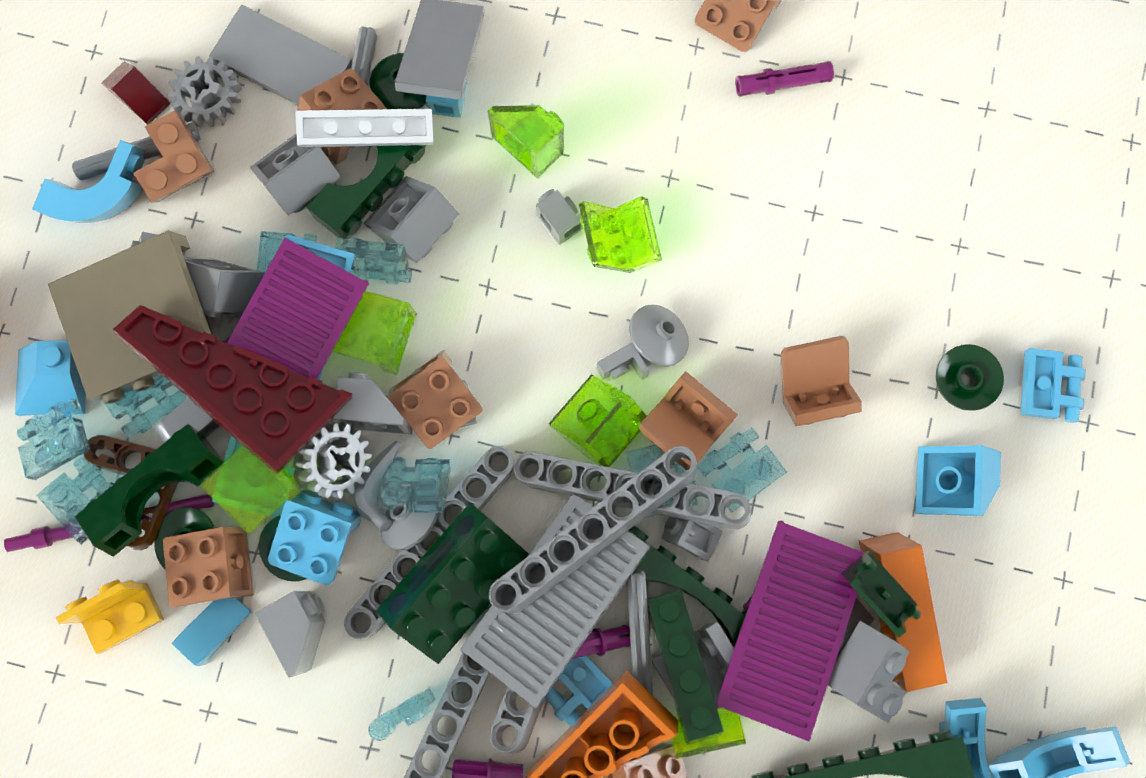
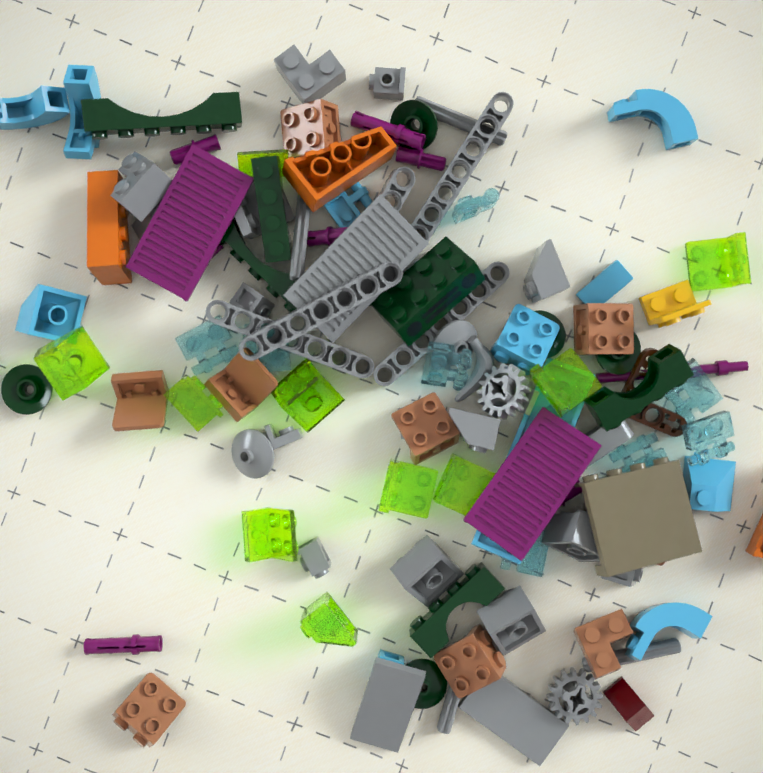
camera: 170 degrees left, 10 degrees up
(53, 683) = (718, 263): none -> clear neon green bracket
(245, 393) = (560, 444): dark red wing -> none
(364, 127) = (452, 644): white plate -> none
(377, 260) = (456, 539): clear light blue plate -> none
(449, 318) = (408, 489): none -> clear neon green bracket
(751, 391) = (193, 402): none -> clear neon green bracket
(792, 746) = (207, 144): none -> magenta axle
(882, 592) = (122, 237): dark green hinge -> none
(918, 418) = (71, 362): none -> clear neon green slope

